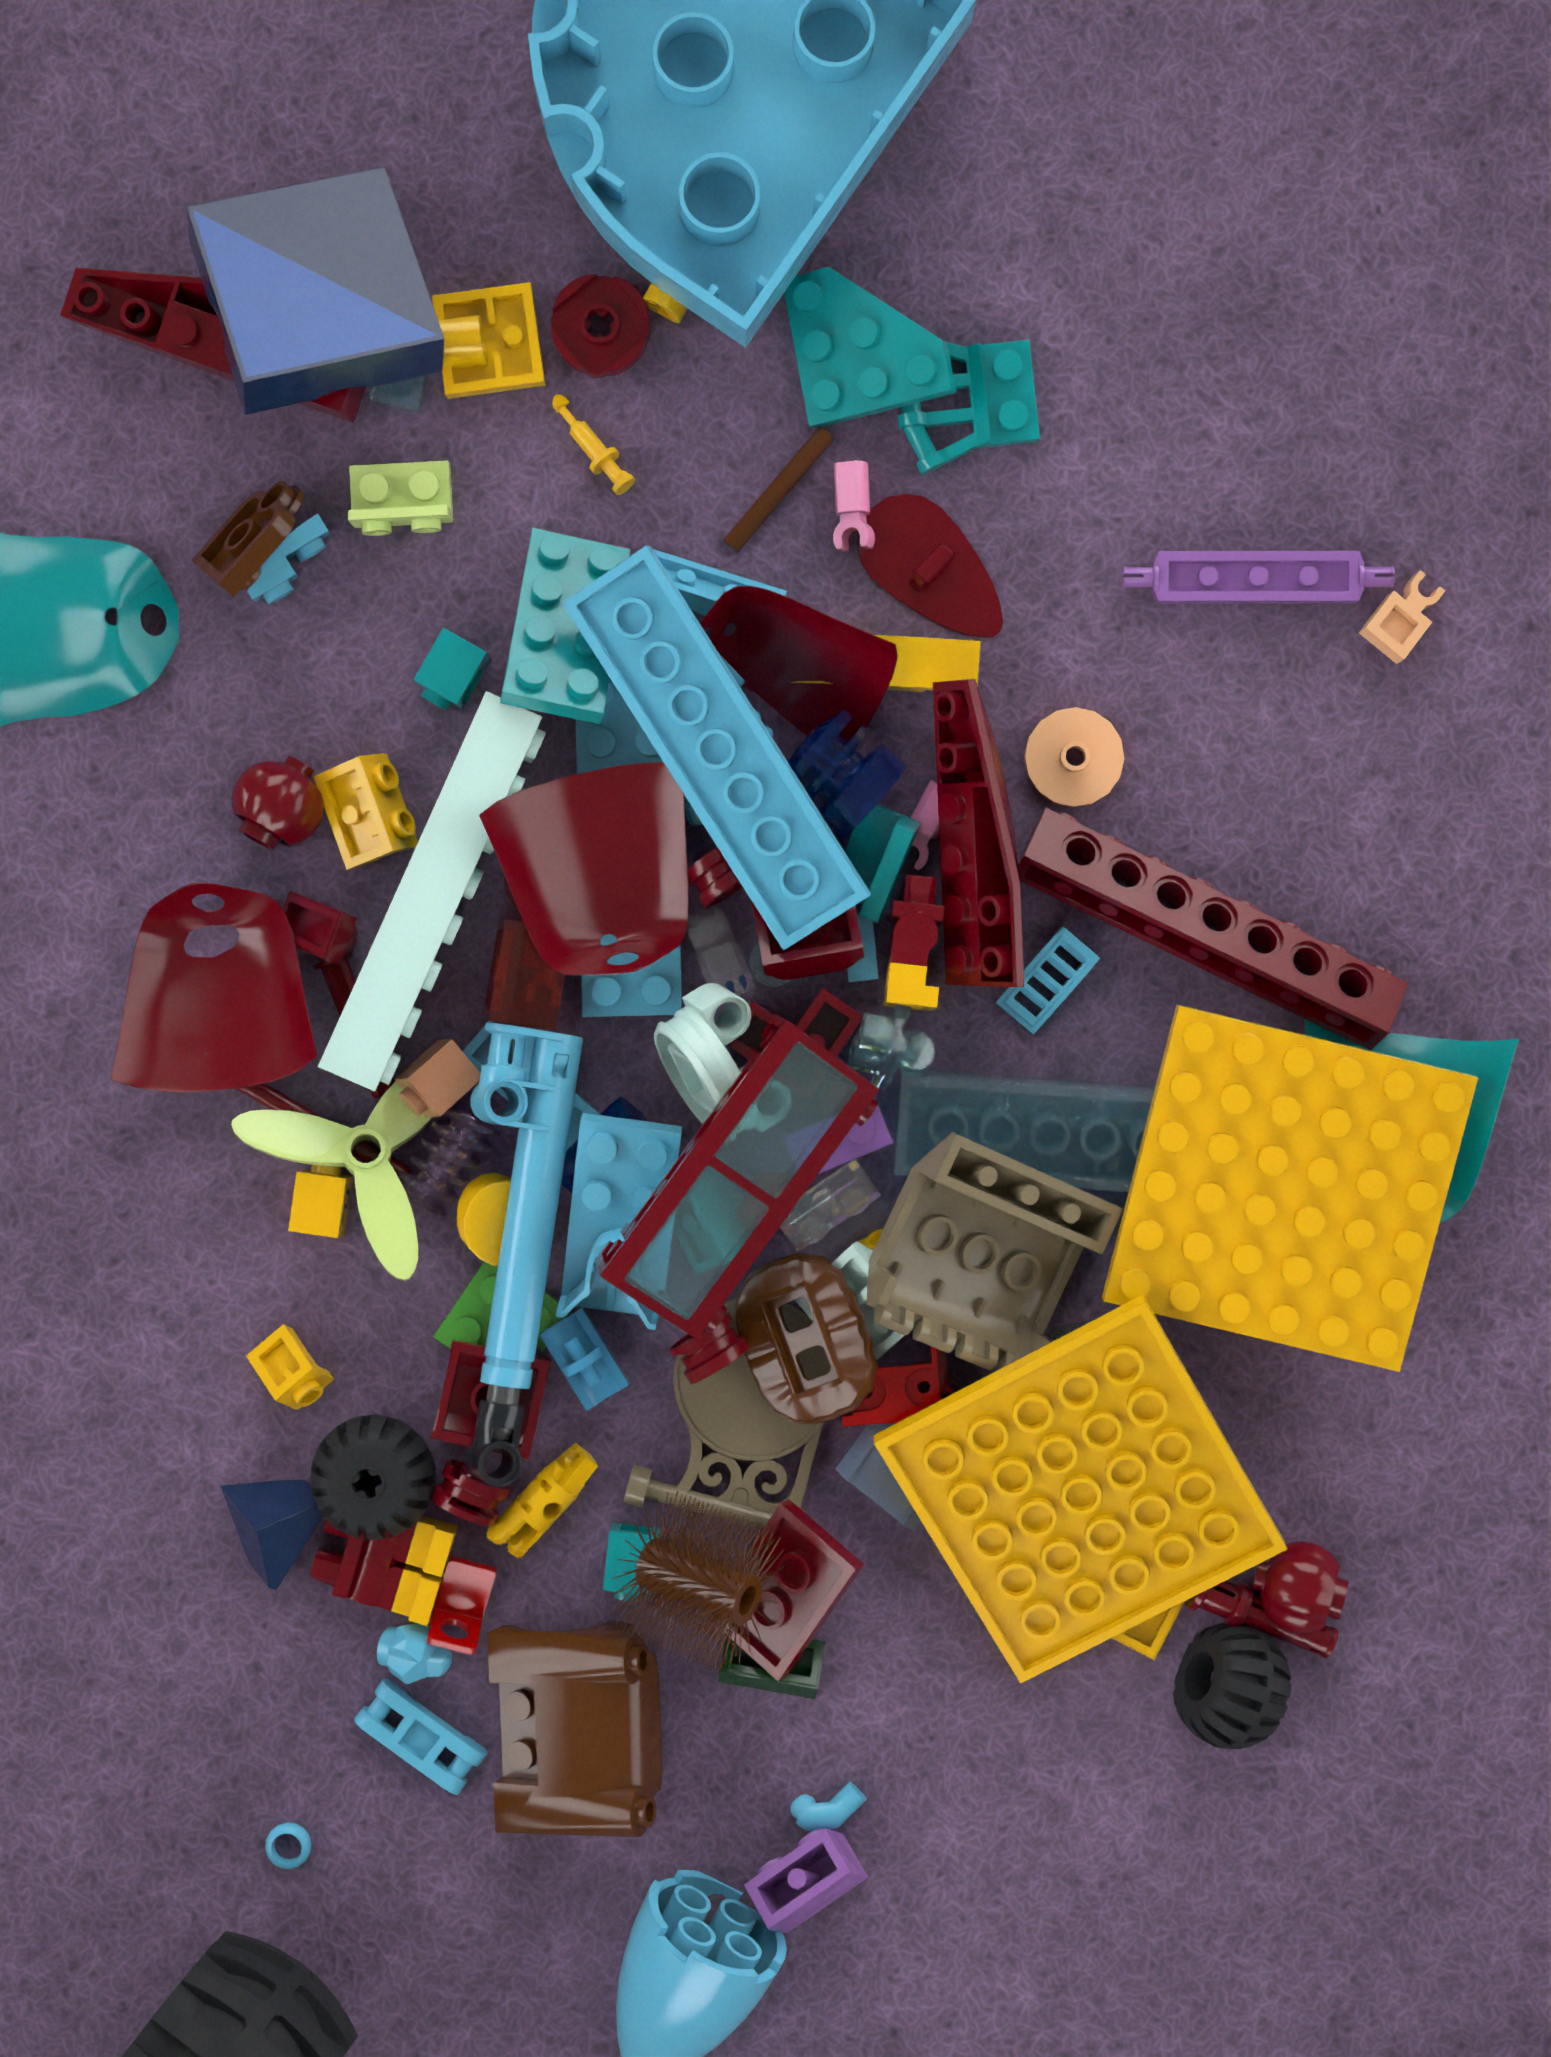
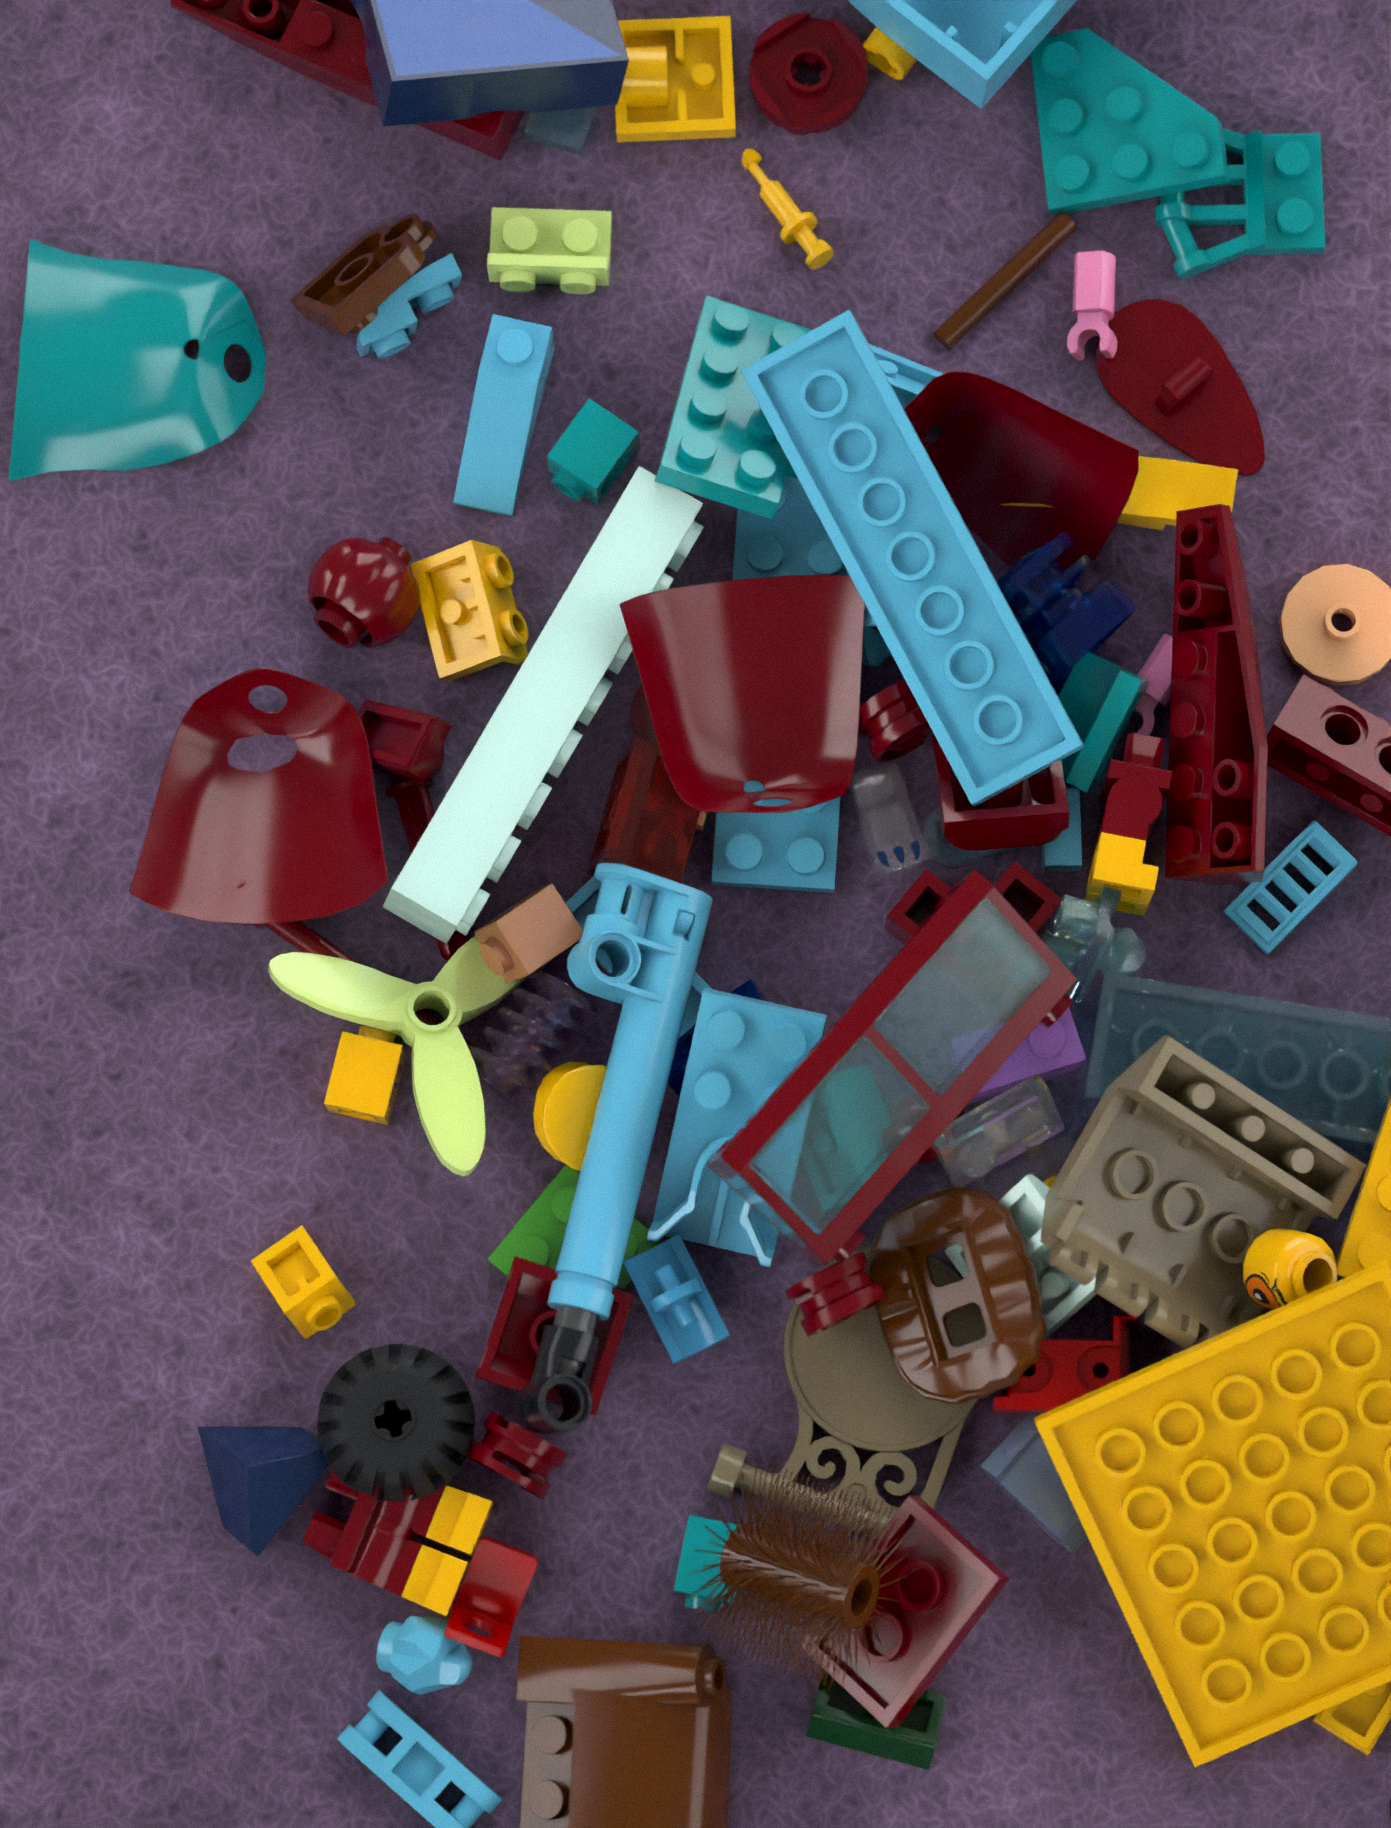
camera: 10 degrees right, 10 degrees down
(376, 643) = (503, 414): none -> medium azure slope
(543, 1501) = (605, 1478): yellow hinge -> none
(695, 1044) = (853, 921): light aqua piece -> none
(1067, 1298) = (1287, 1266): none -> yellow head

